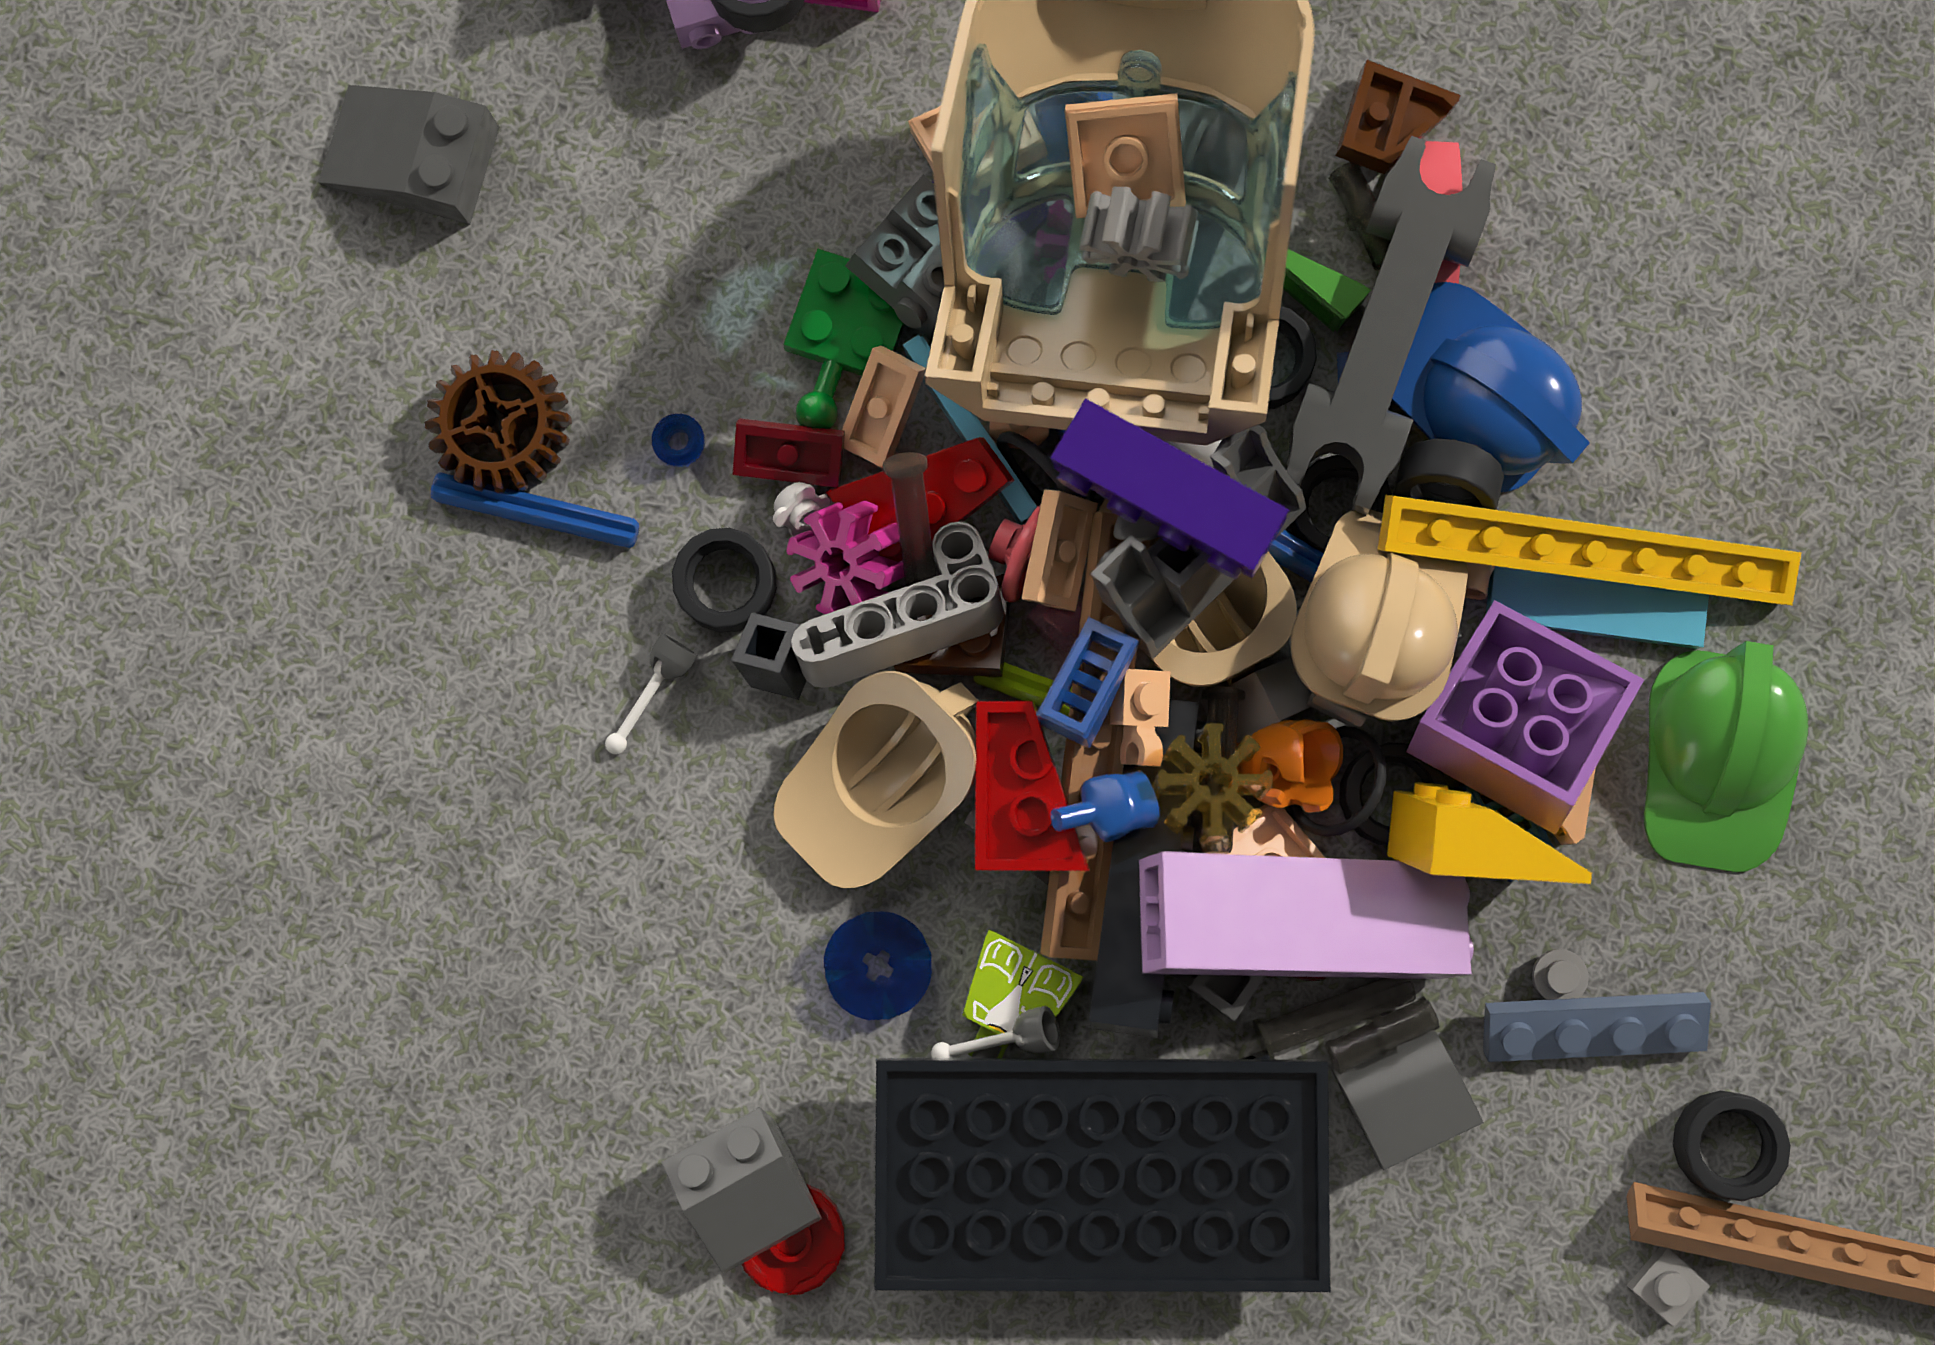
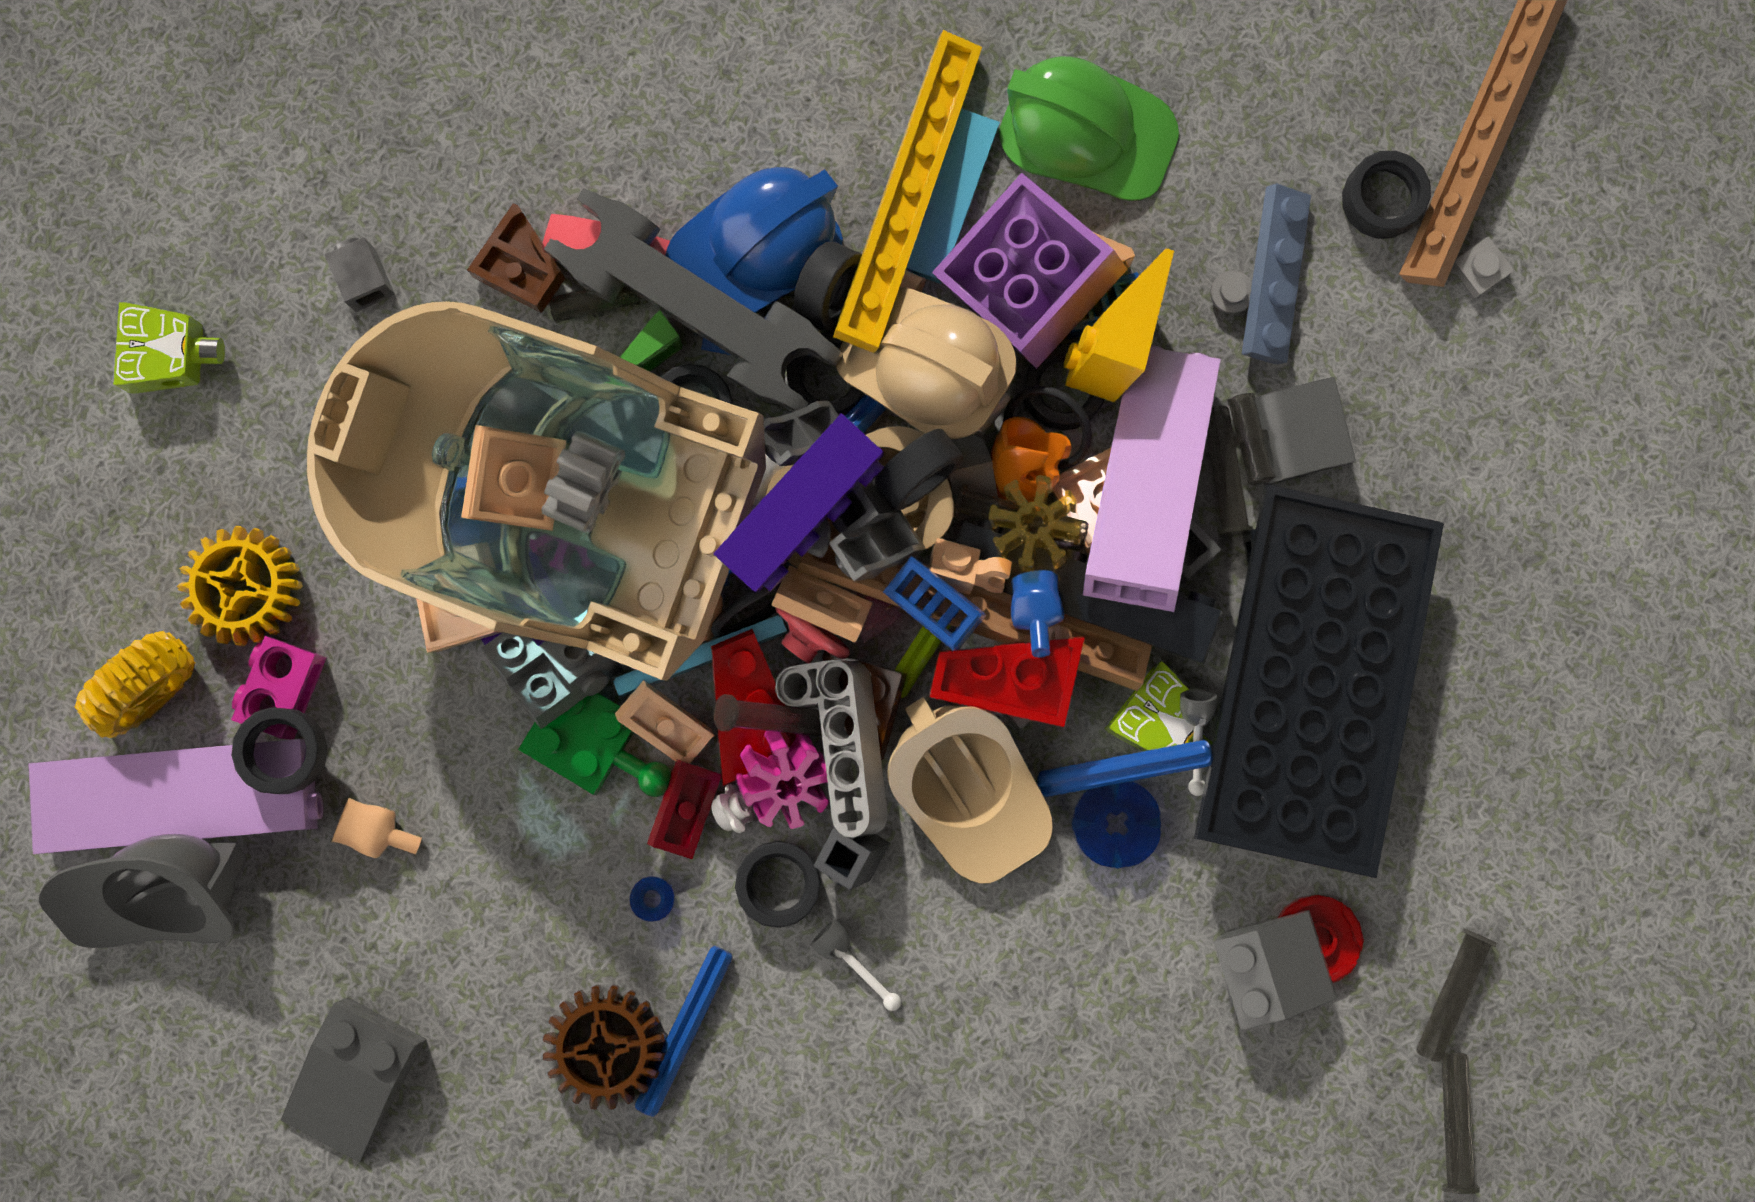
camera: 85 degrees left, 0 degrees up
(691, 106) = (372, 830): none -> light nougat piece
(944, 960) = (1125, 768): none -> blue axle
(1246, 627) = (918, 469): none -> black tyre

